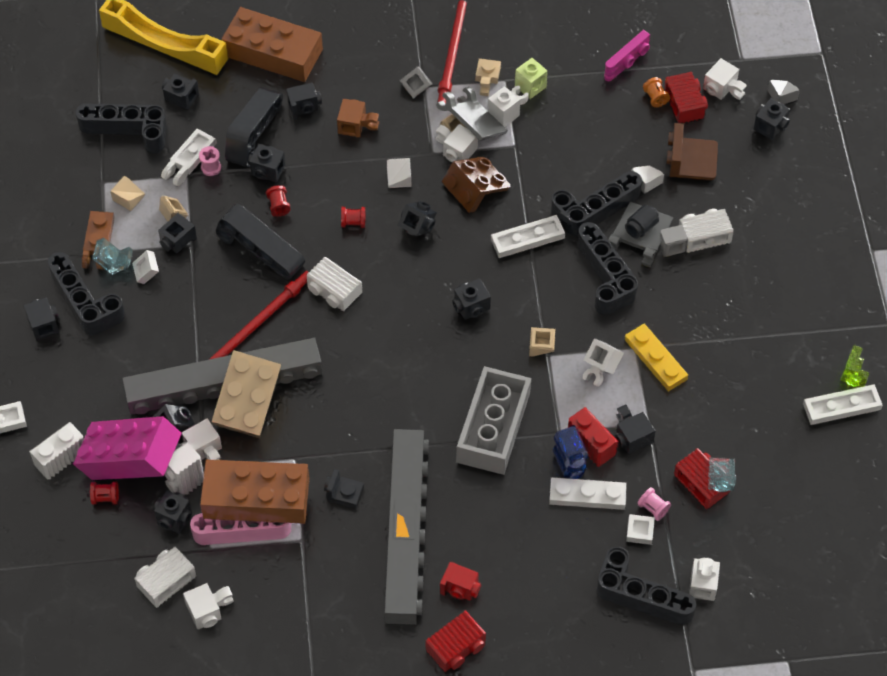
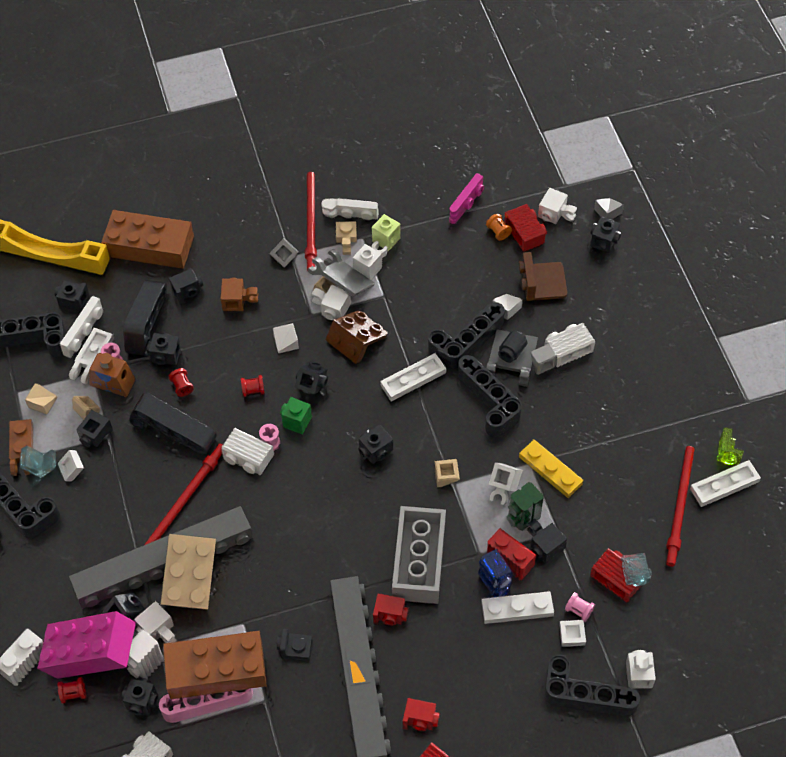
camera: 10 degrees left, 0 degrees up
(184, 125) = (82, 327): none -> white plate
(205, 180) = (111, 374): none -> dark orange torso
(360, 269) = (271, 431): none -> bright pink bush
(393, 255) = (296, 415): none -> green brick
(450, 471) = (390, 610): none -> red brick
(497, 46) = (350, 208): none -> white hinge
(617, 389) = (525, 506): none -> dark green brick
(772, 456) = (674, 541): none -> red bar

